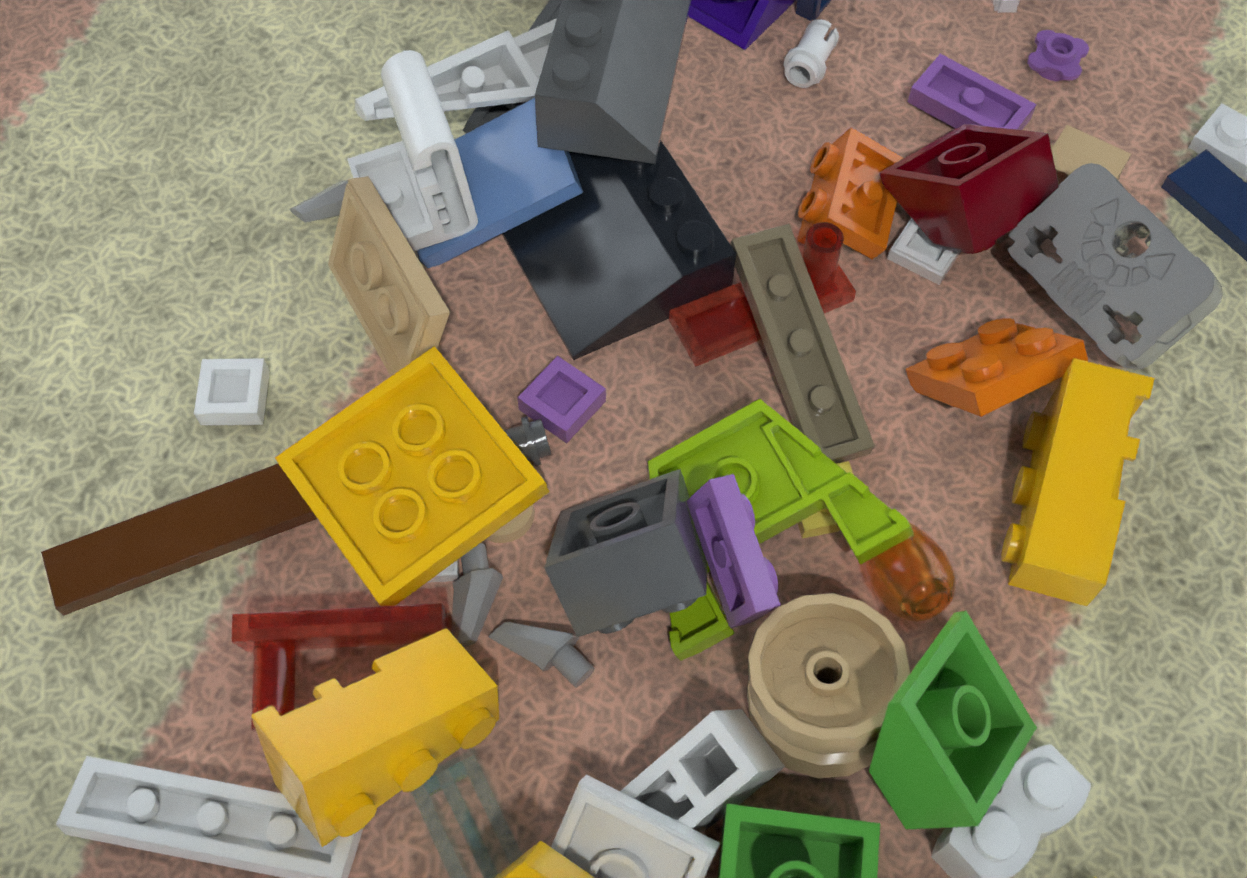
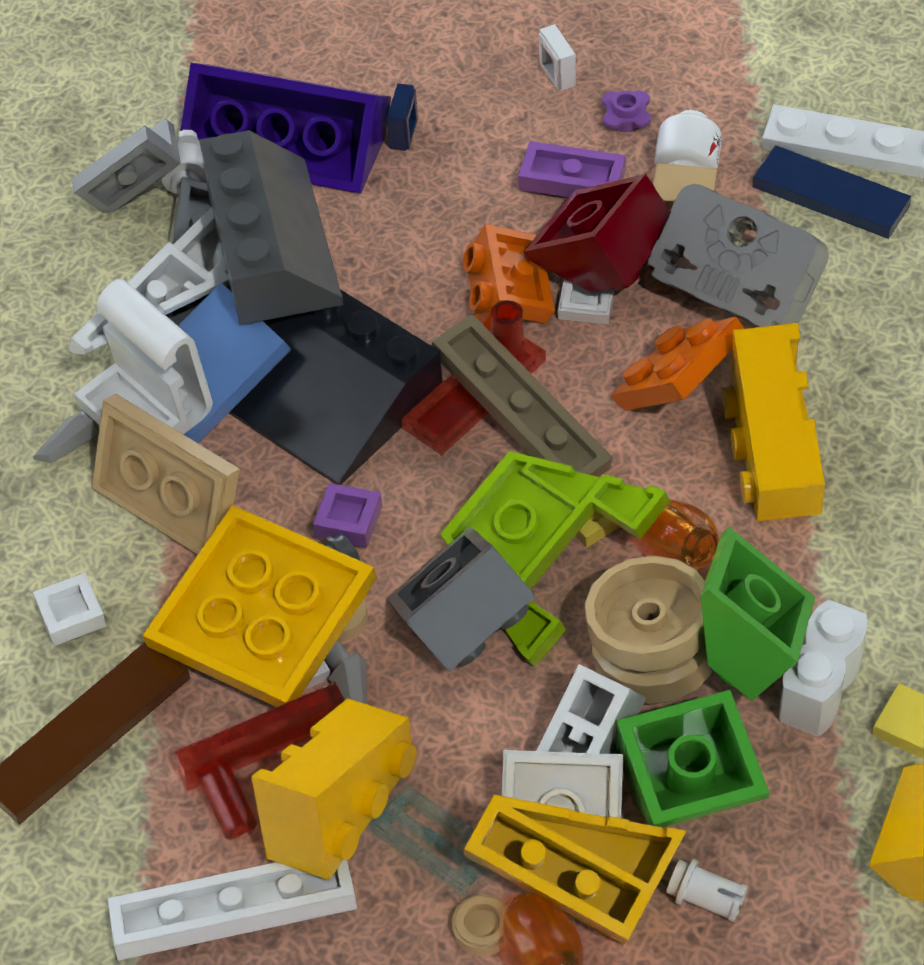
camera: 20 degrees left, 10 degrees down
(545, 649) = (425, 695): light grey bar -> none
(727, 535) = (541, 561): medium lavender plate -> none
(810, 55) = (420, 185): white pin -> none
(1112, 112) = (689, 140): none -> white head

